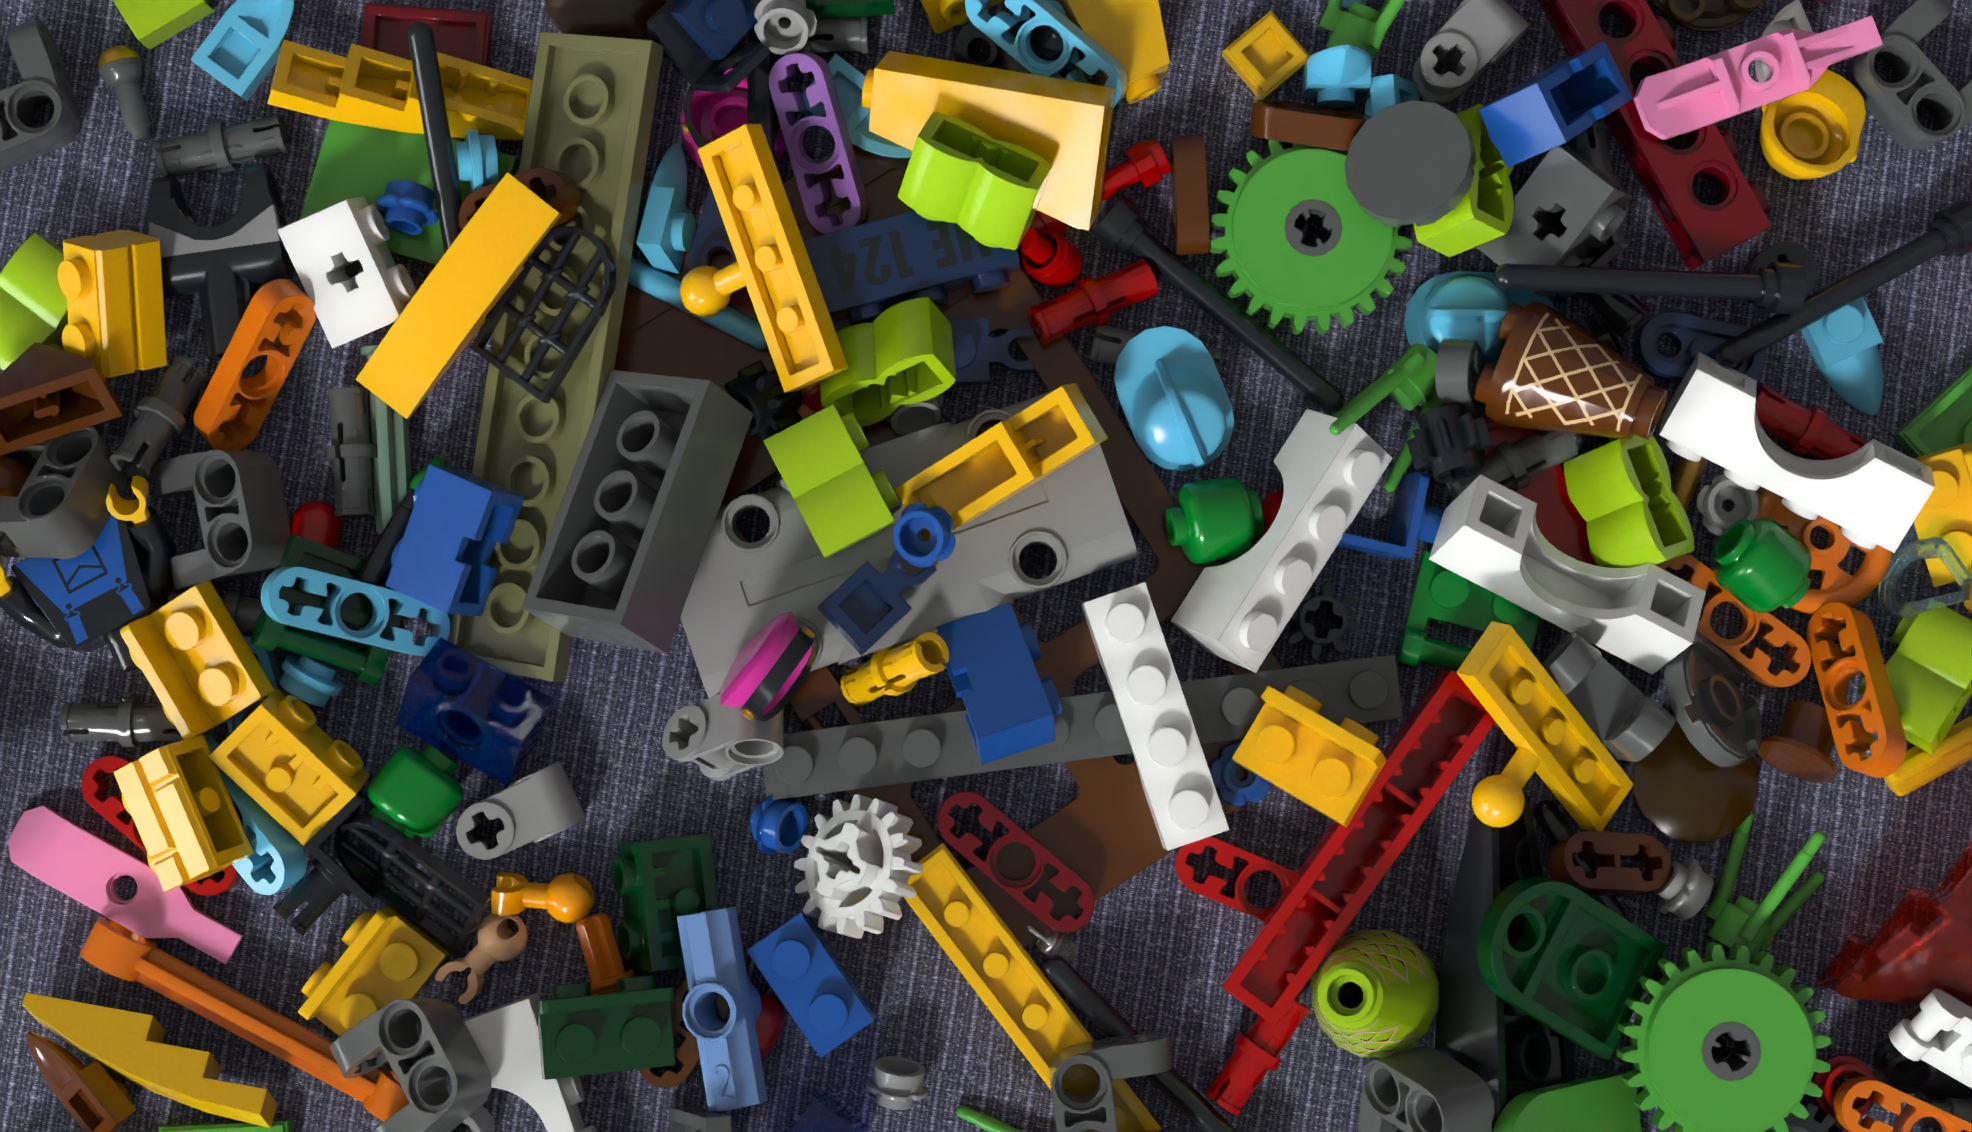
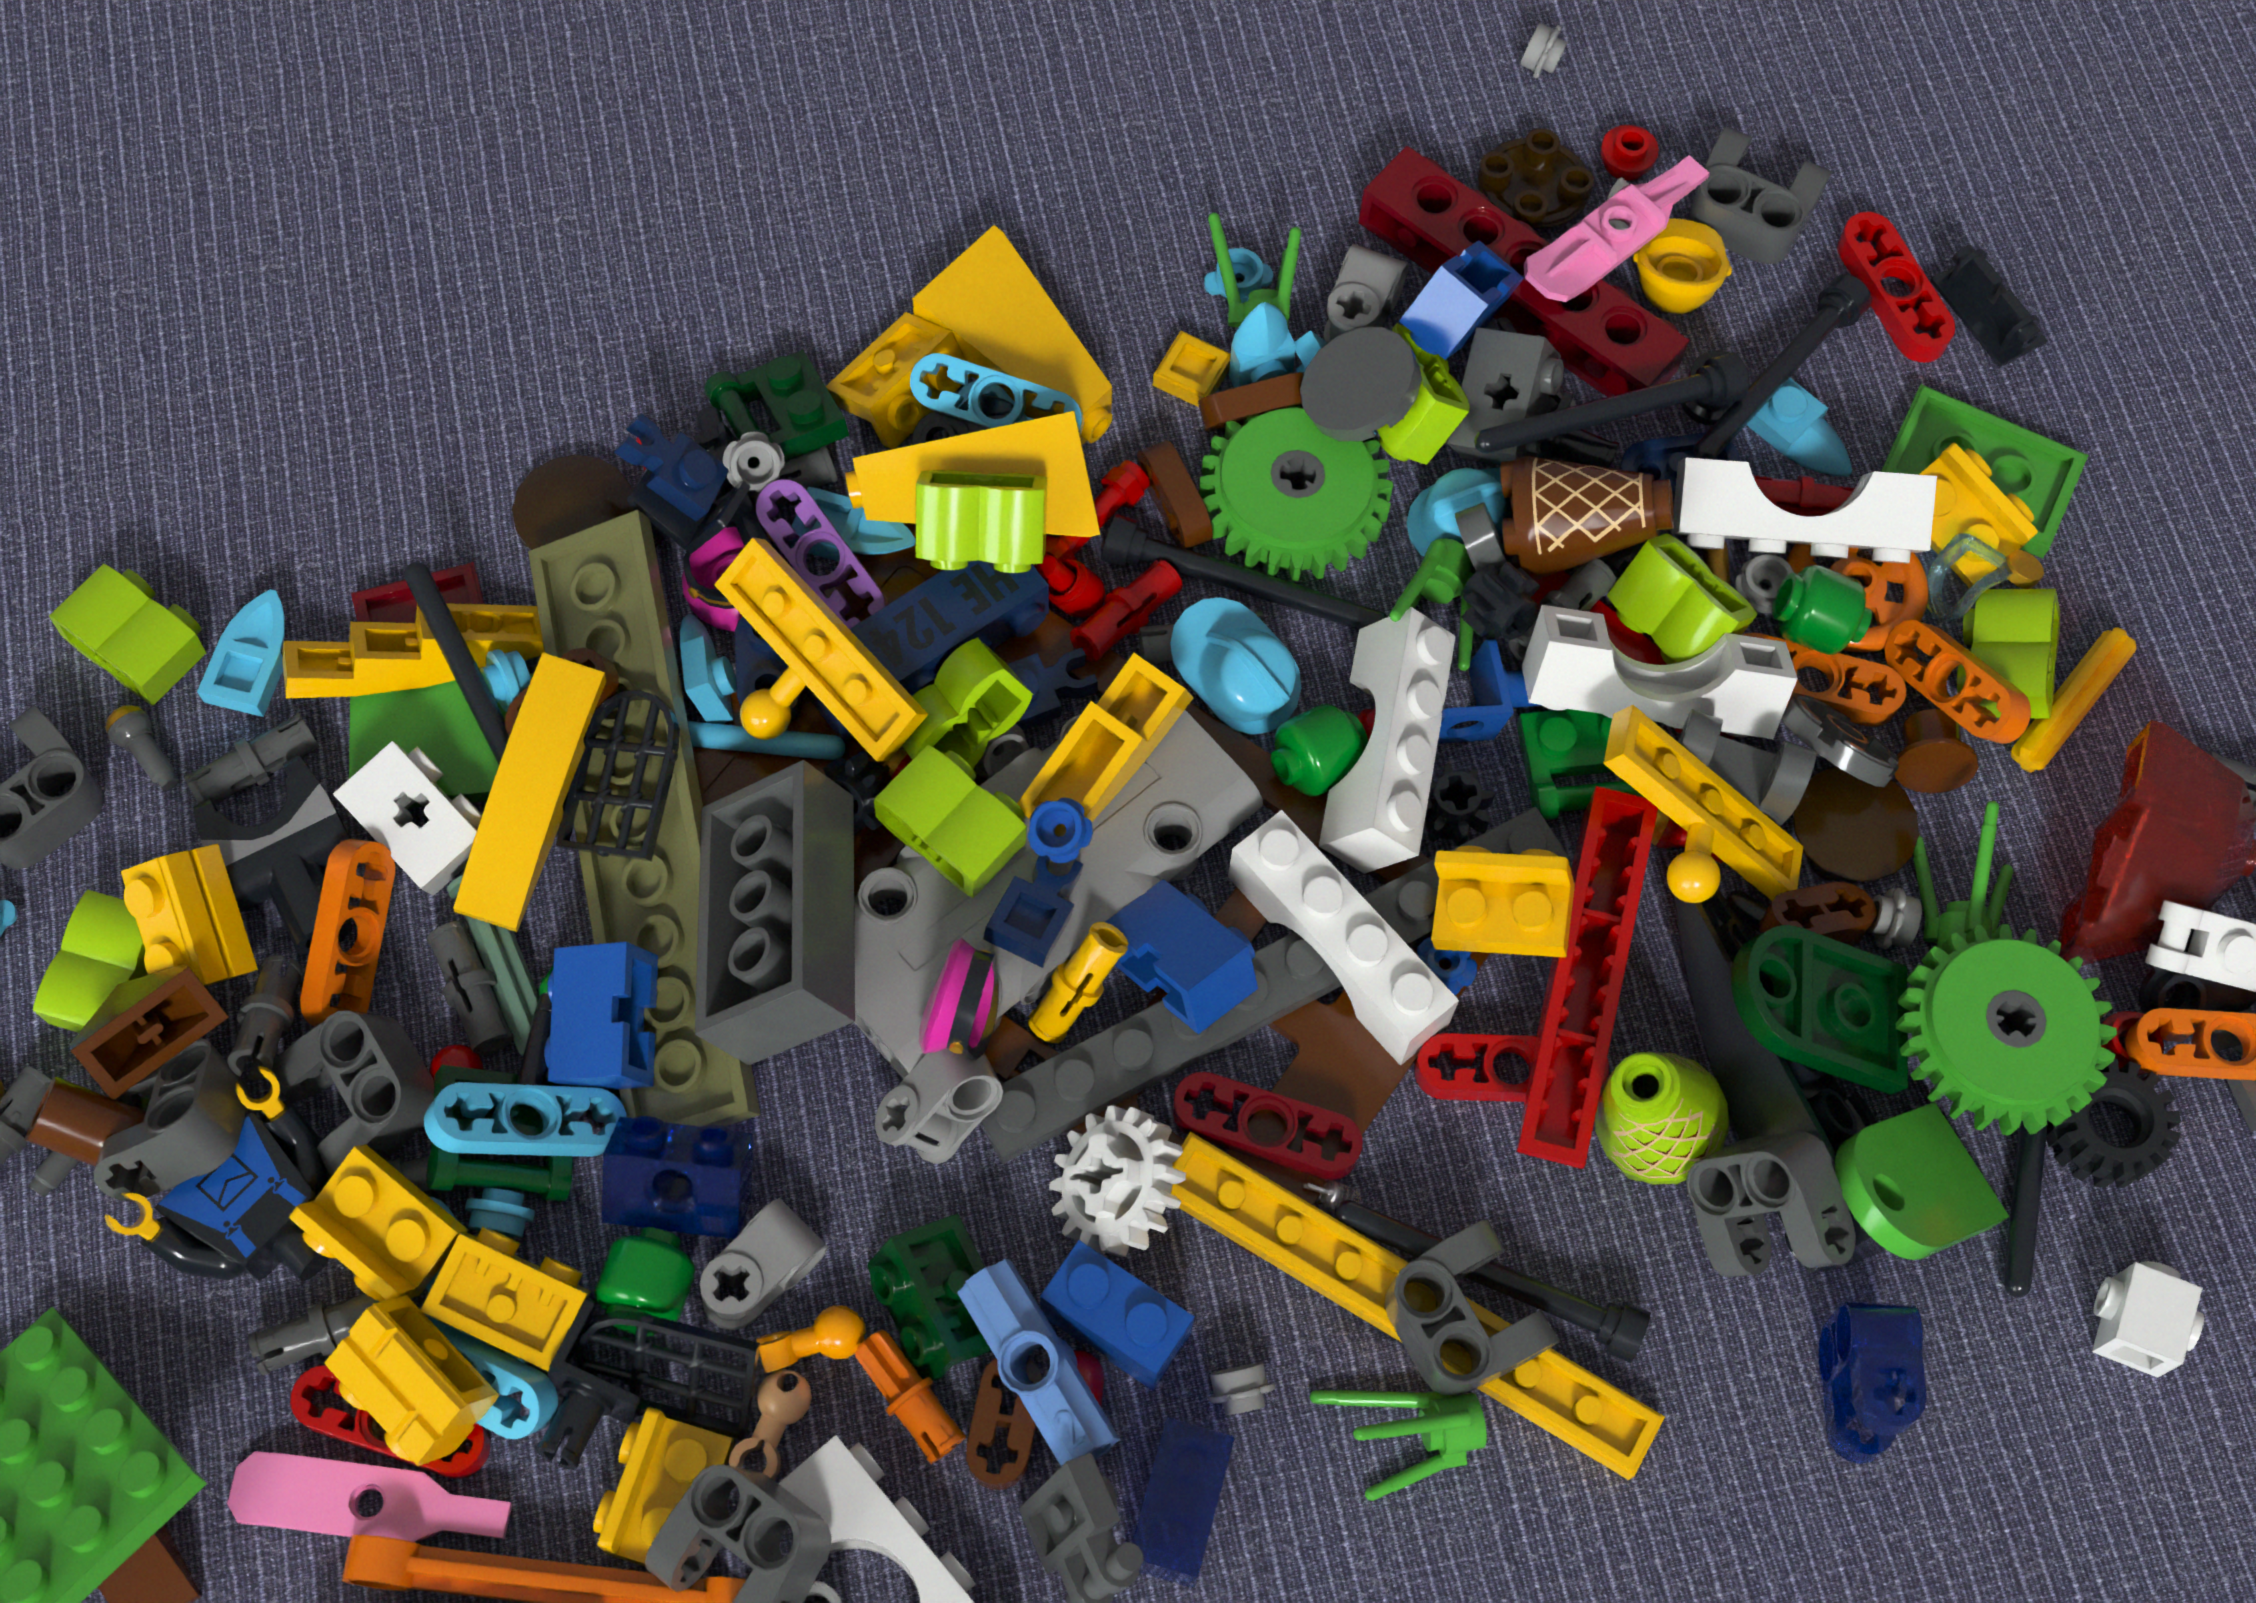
camera: 25 degrees left, 20 degrees down
(407, 207) = (452, 740): blue plate -> none
(605, 1030) = (925, 1431): dark green bracket -> none
(778, 825) = (1021, 1180): blue plate -> none
(1253, 1057) = (1576, 1223): red pin -> none

